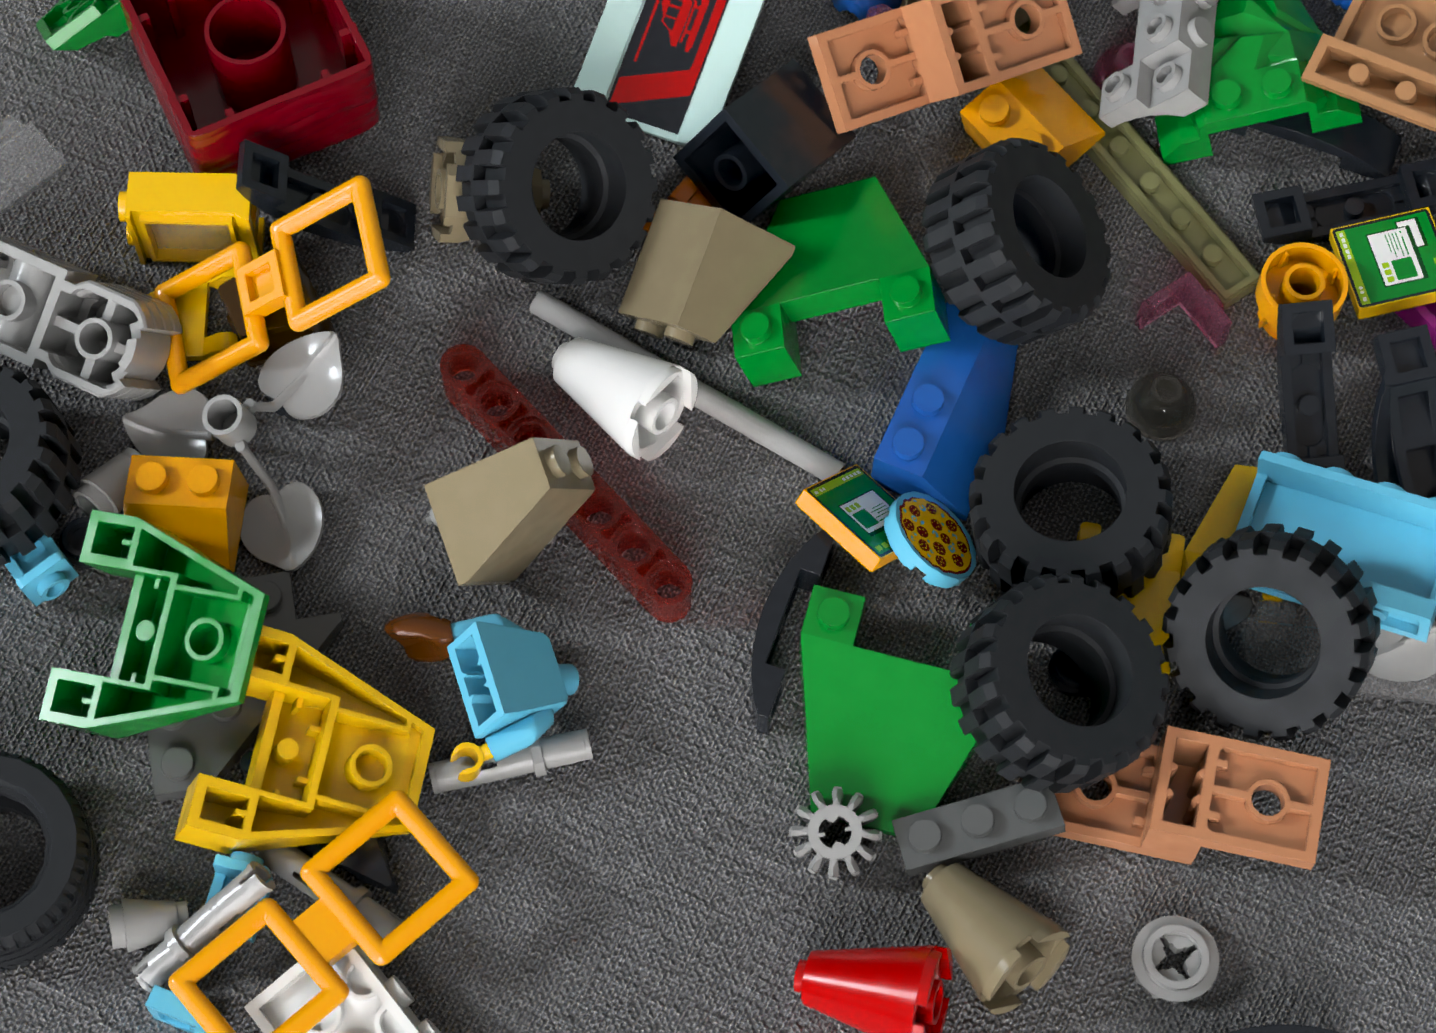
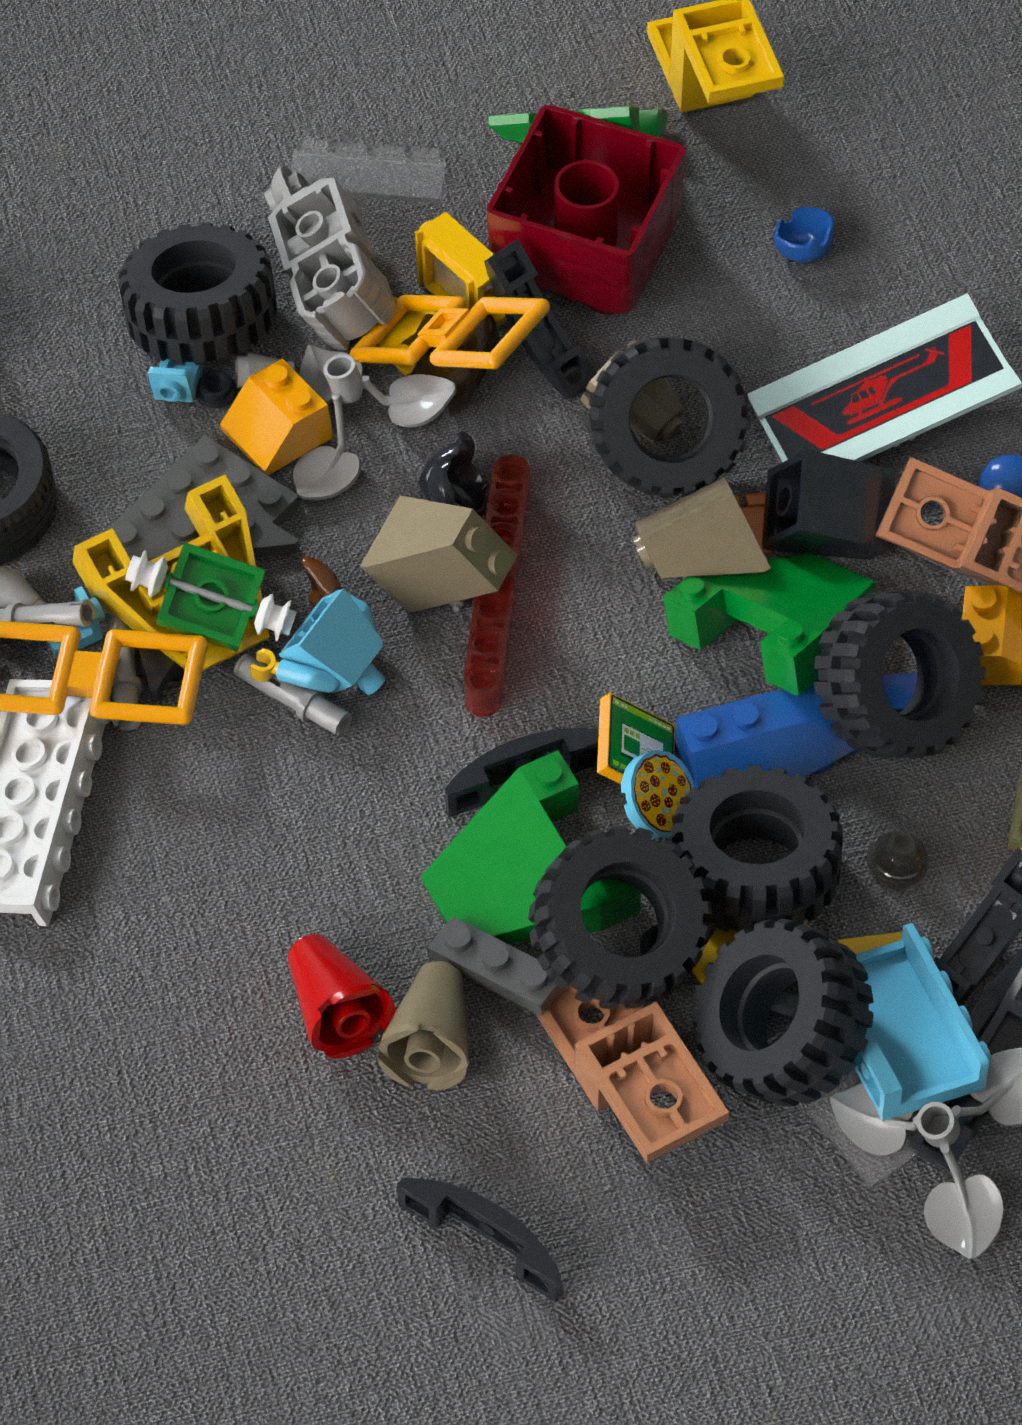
camera: 50 degrees right, 10 degrees down
(181, 642) = (188, 457): green wedge -> none
(358, 746) = (210, 596): none -> green plate
(419, 424) = (453, 478): none -> black hair
(626, 393) = (585, 571): white cone -> none
(707, 400) = (629, 597): light grey piece -> none
(832, 815) = (430, 895): light grey gear -> none
(1178, 935) = (511, 1132): light grey gear -> none
(1198, 303) = (984, 811): clear pink bracket -> none

